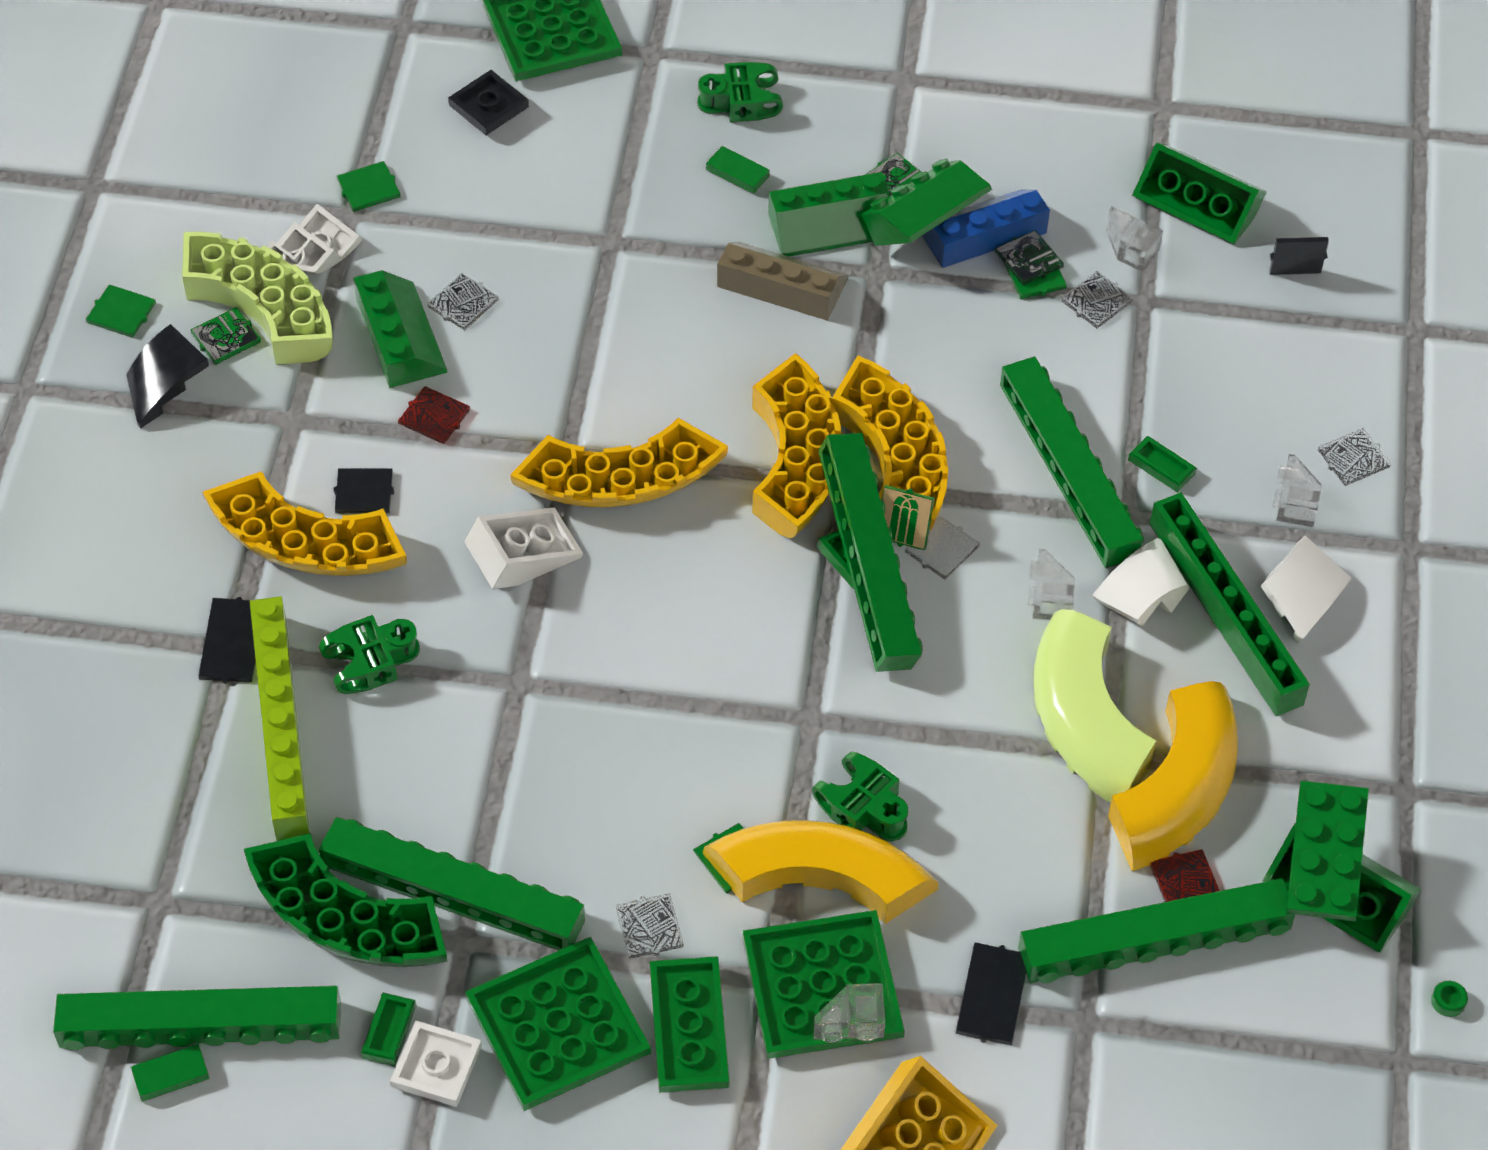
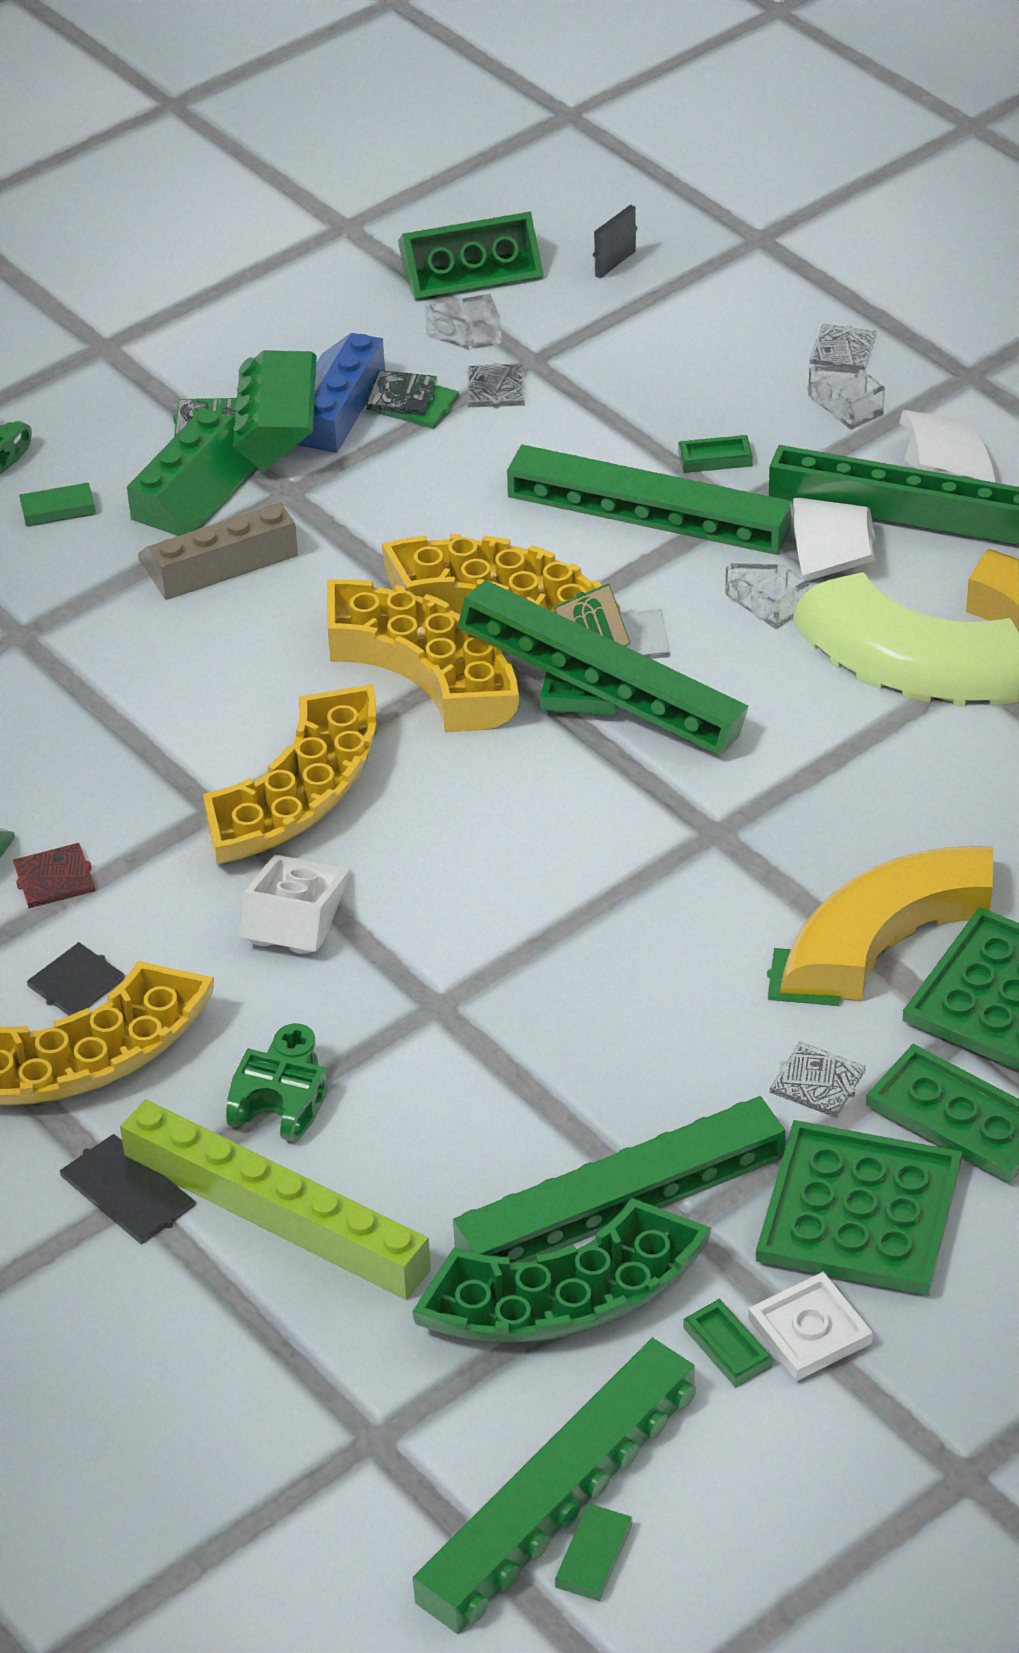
camera: 45 degrees left, 10 degrees down
(867, 800) = (843, 844): green piece -> none

